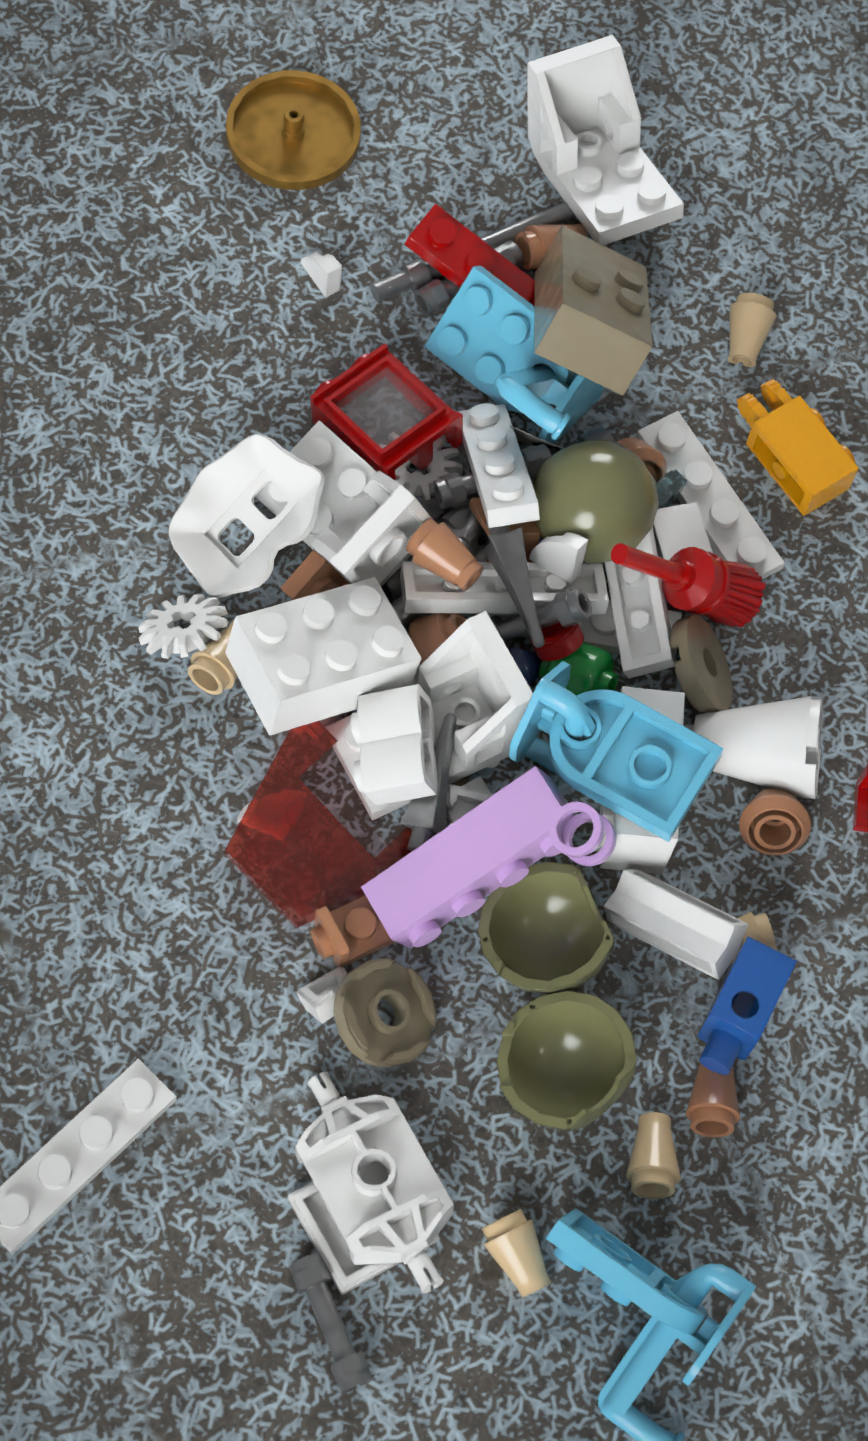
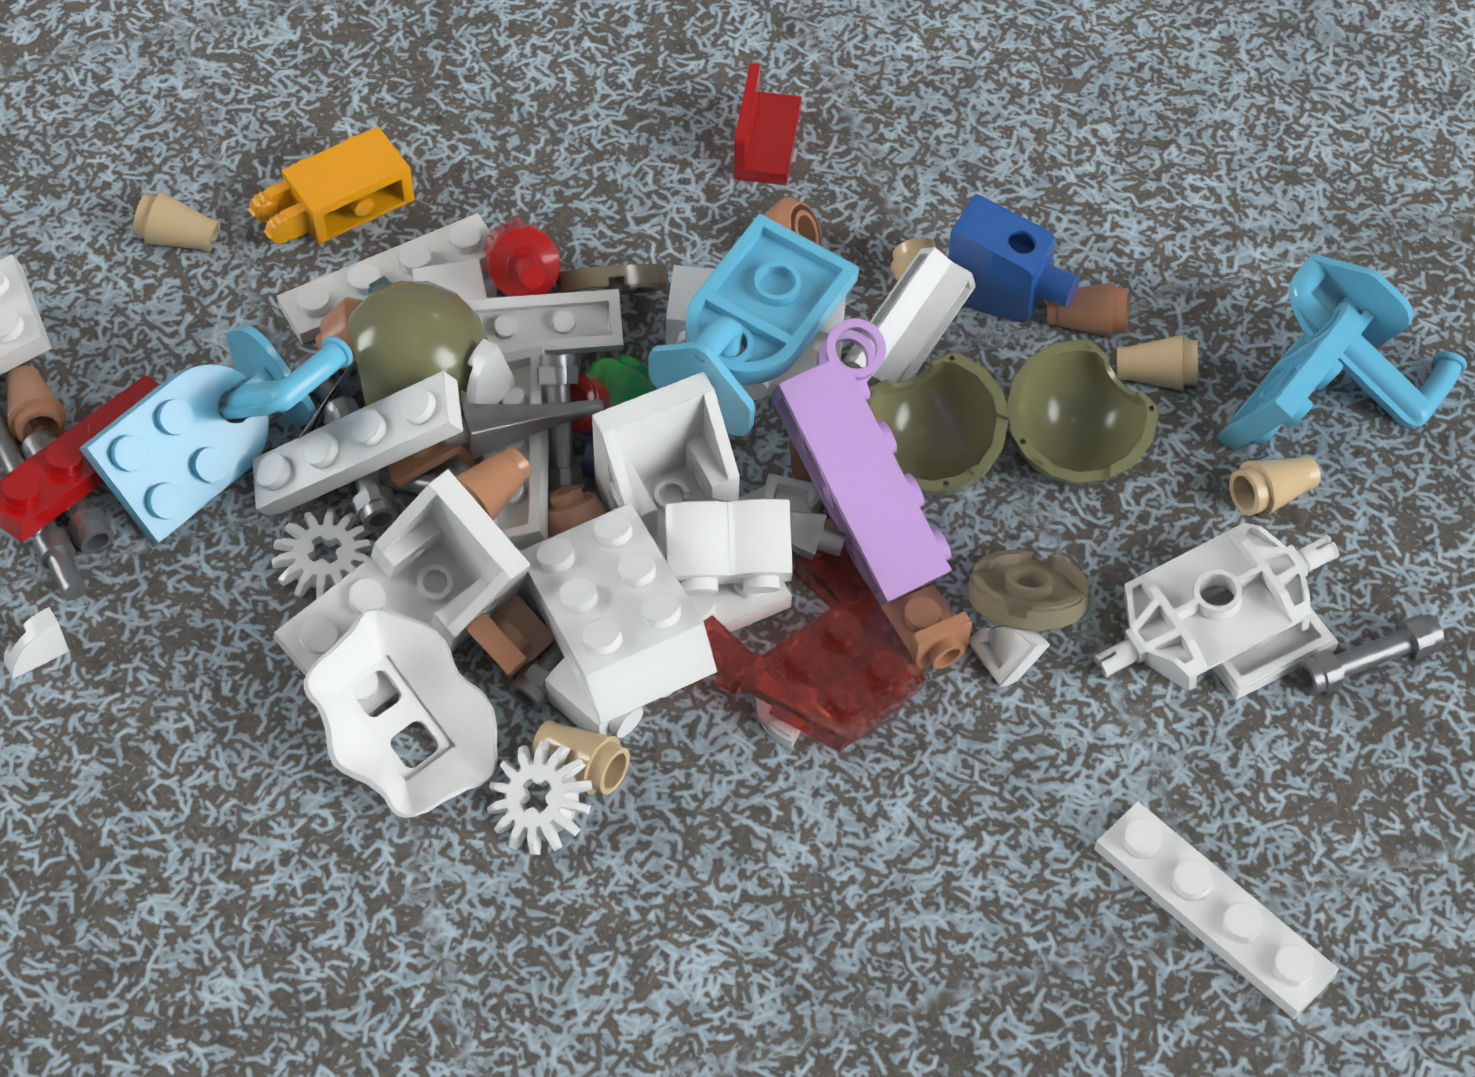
camera: 80 degrees left, 10 degrees down
(385, 413) = (262, 572): red window -> none
(592, 311) = (167, 327): dark tan brick -> none
(769, 743) = (705, 210): white cone -> none

